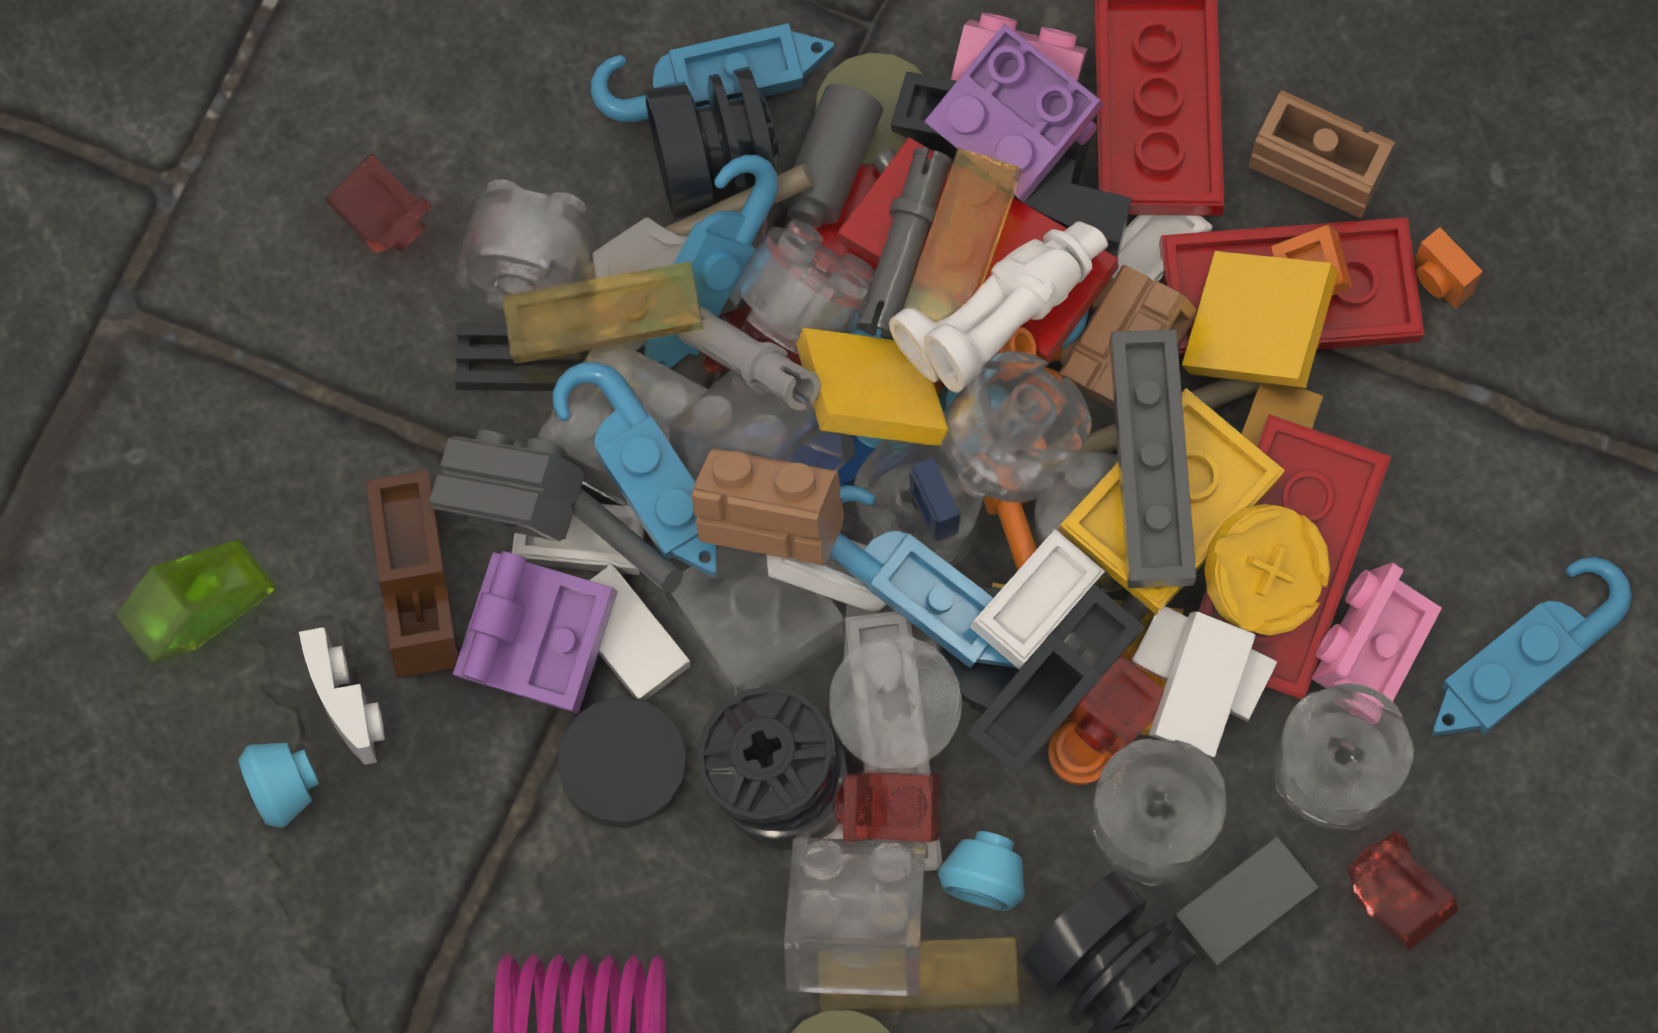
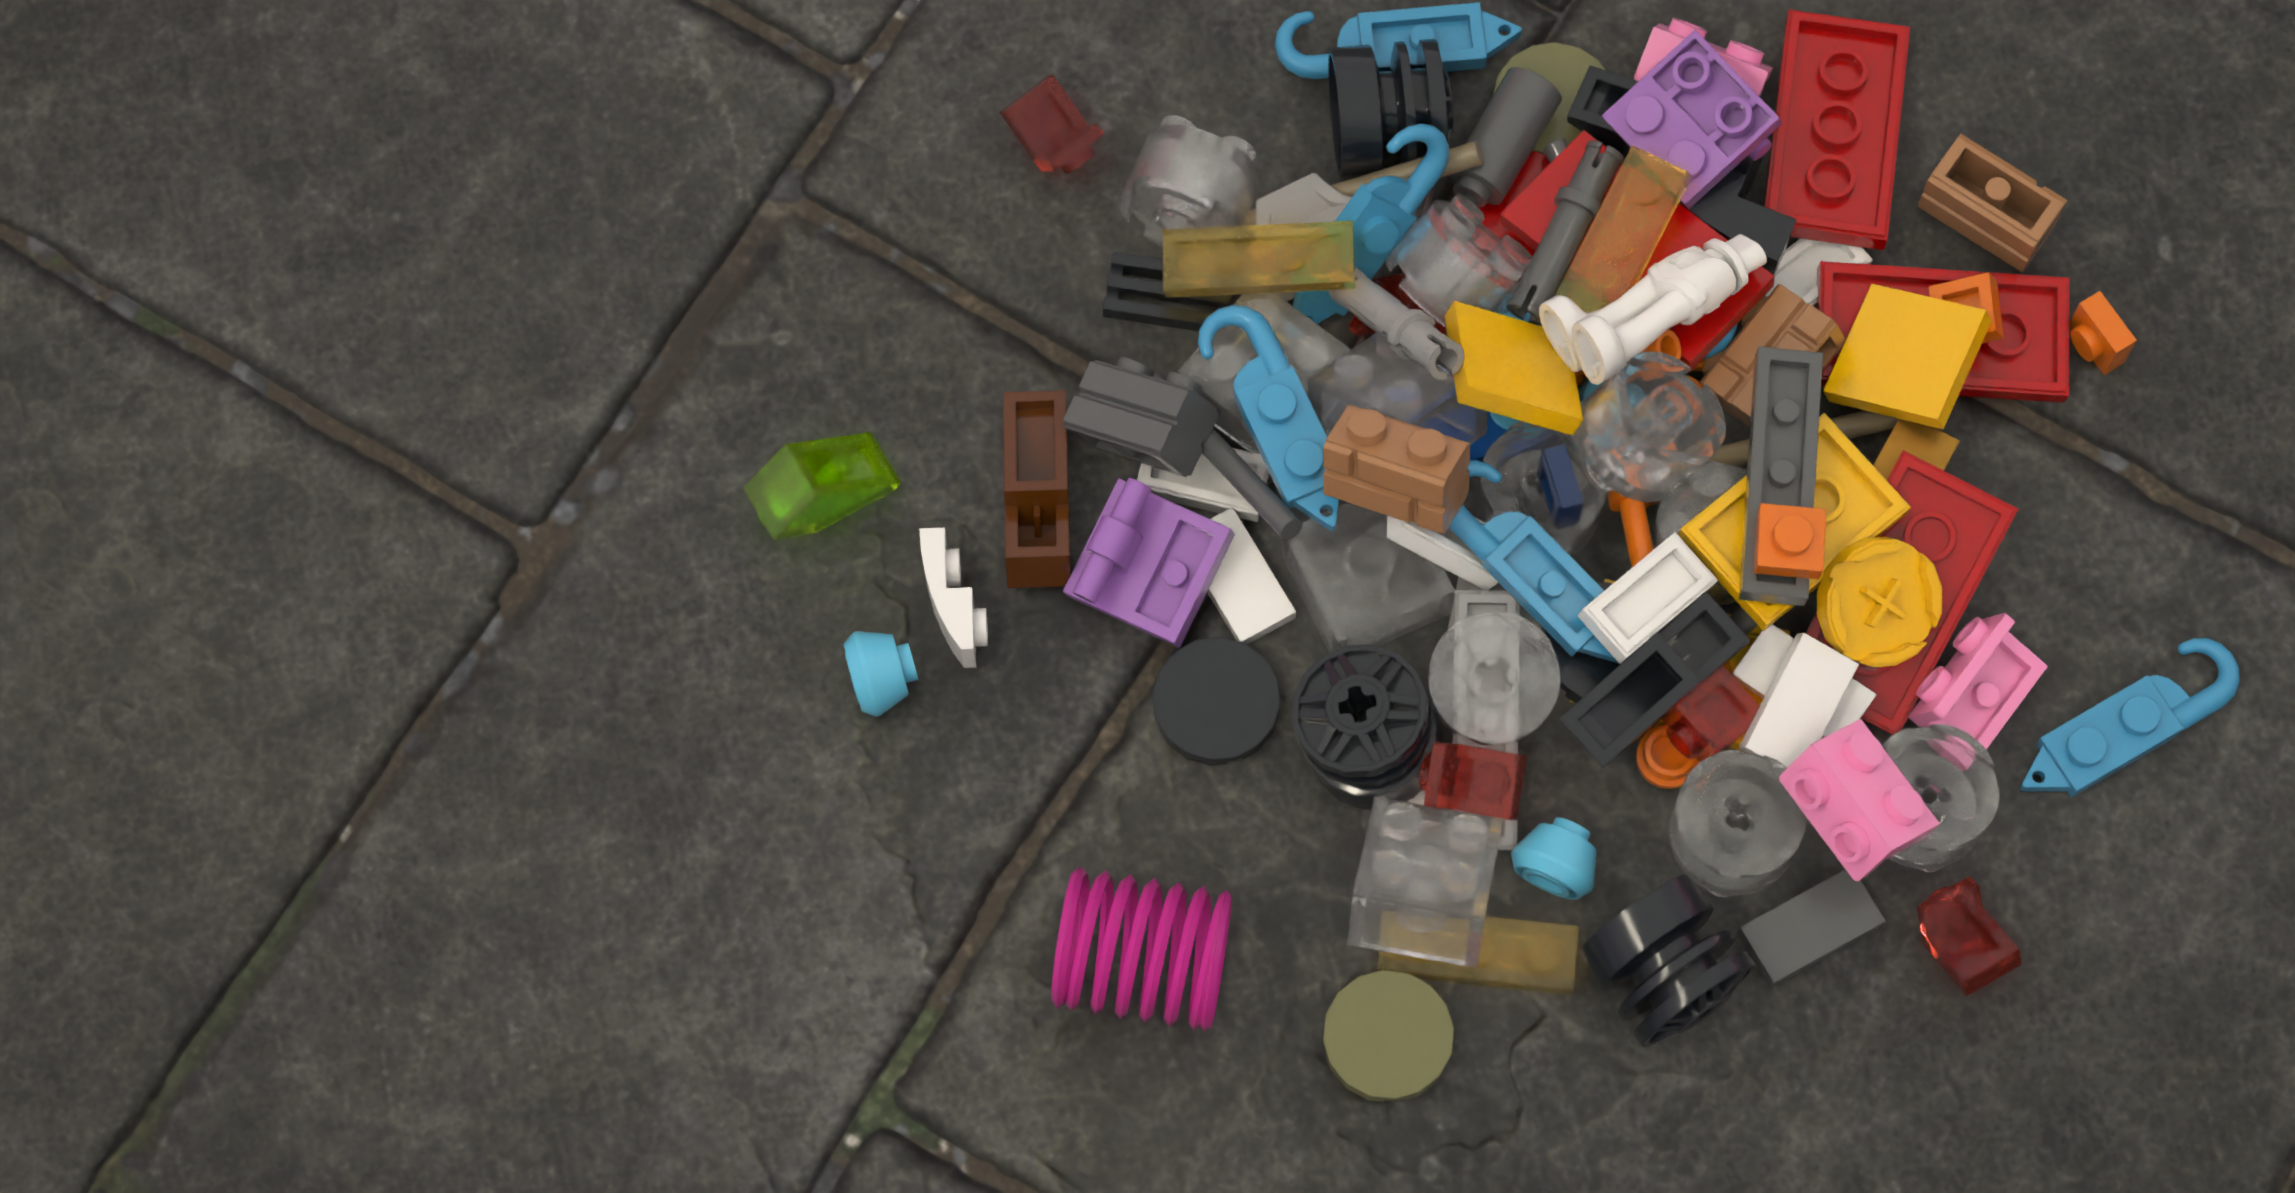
camera: 10 degrees right, 0 degrees up
(1170, 523) = (1789, 541): none -> orange plate
(1273, 771) = (1857, 799): none -> bright pink bracket

